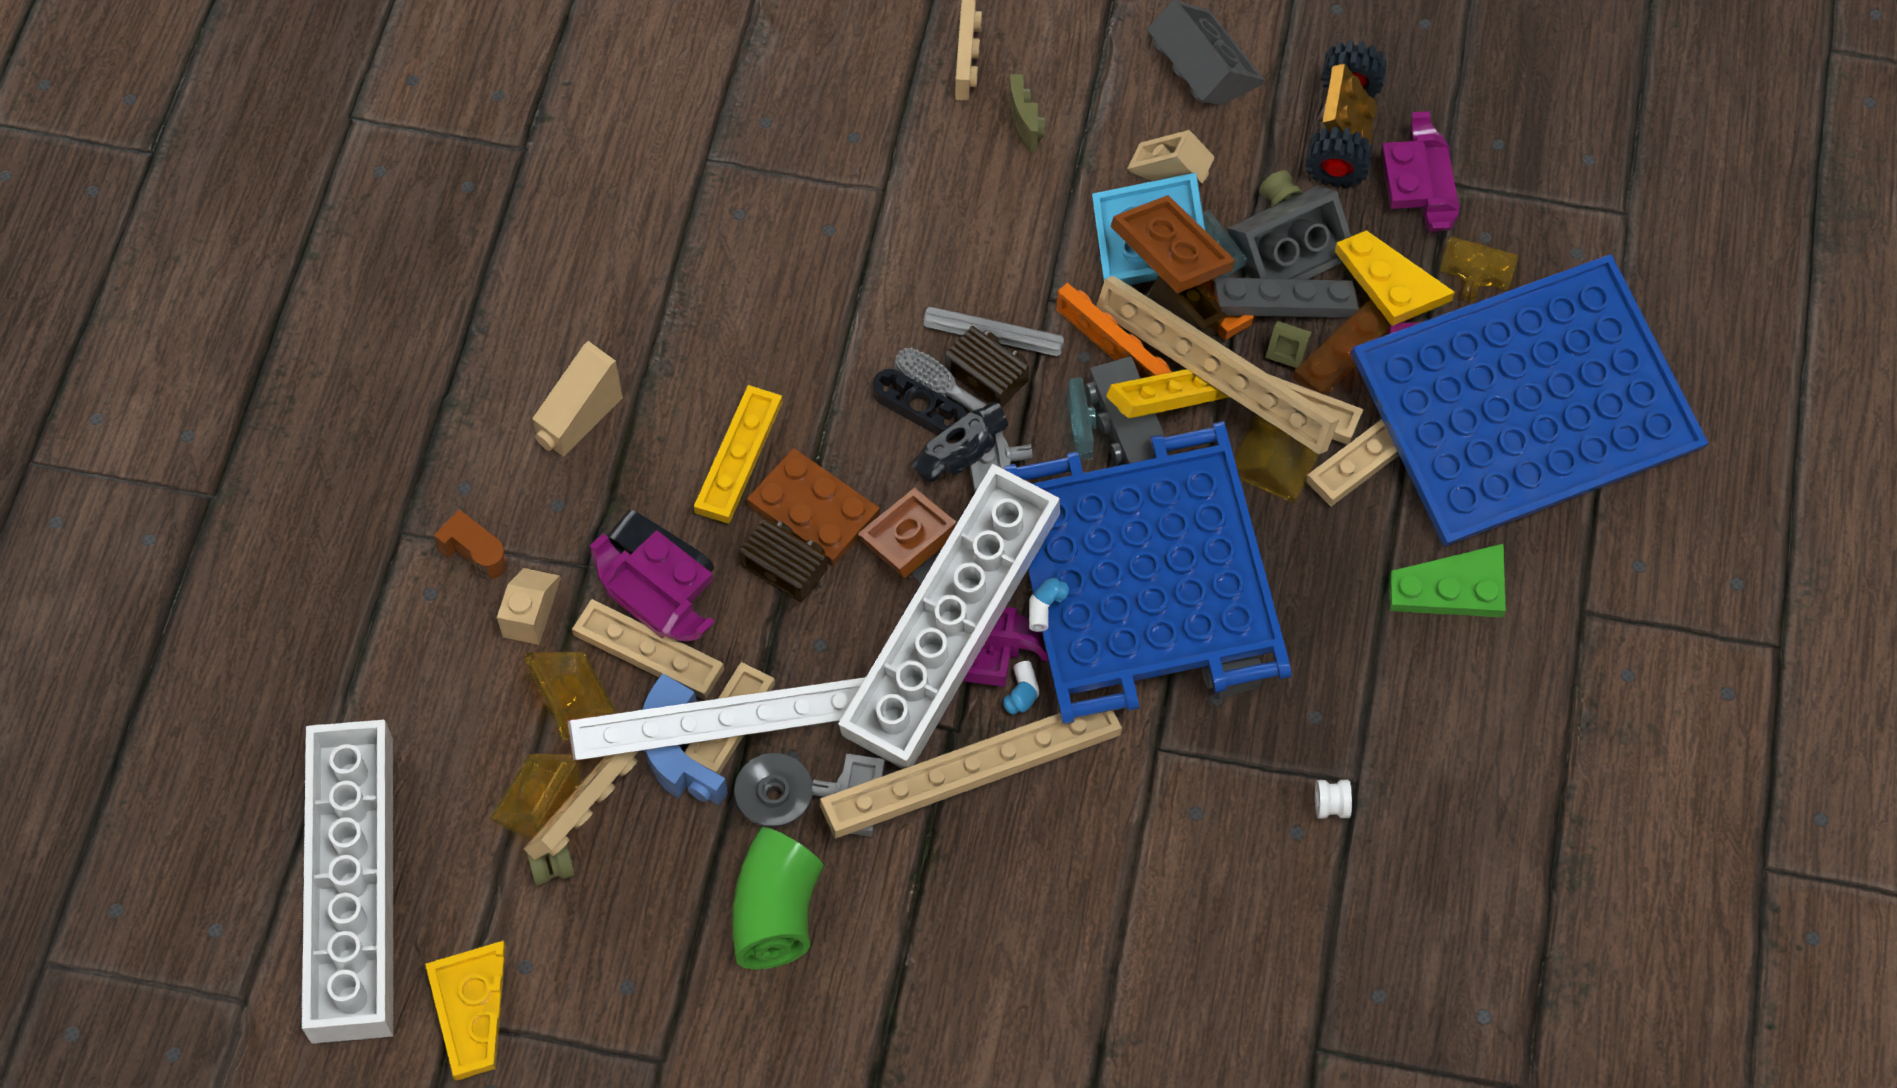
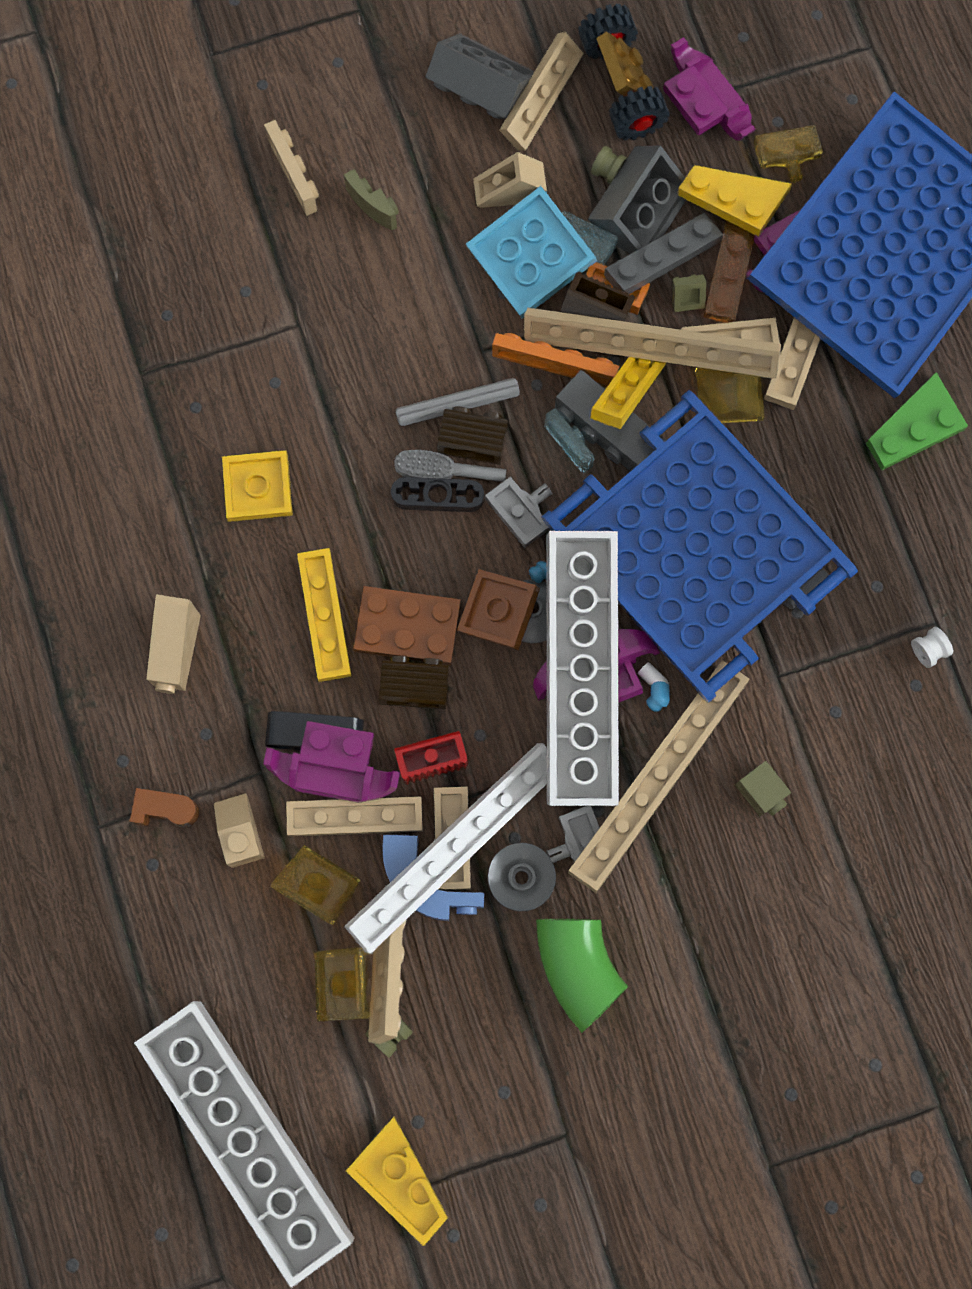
camera: 30 degrees left, 15 degrees up
(750, 308) = (257, 486): none -> yellow plate
(755, 631) = (431, 757): none -> red brick
(942, 456) = (481, 533): black piece -> none
(1041, 599) = (640, 614): arm -> none
(1070, 840) = (764, 790): none -> olive brick
(1172, 243) = (563, 259): dark orange plate -> none
(1255, 95) = (541, 91): none -> tan plate

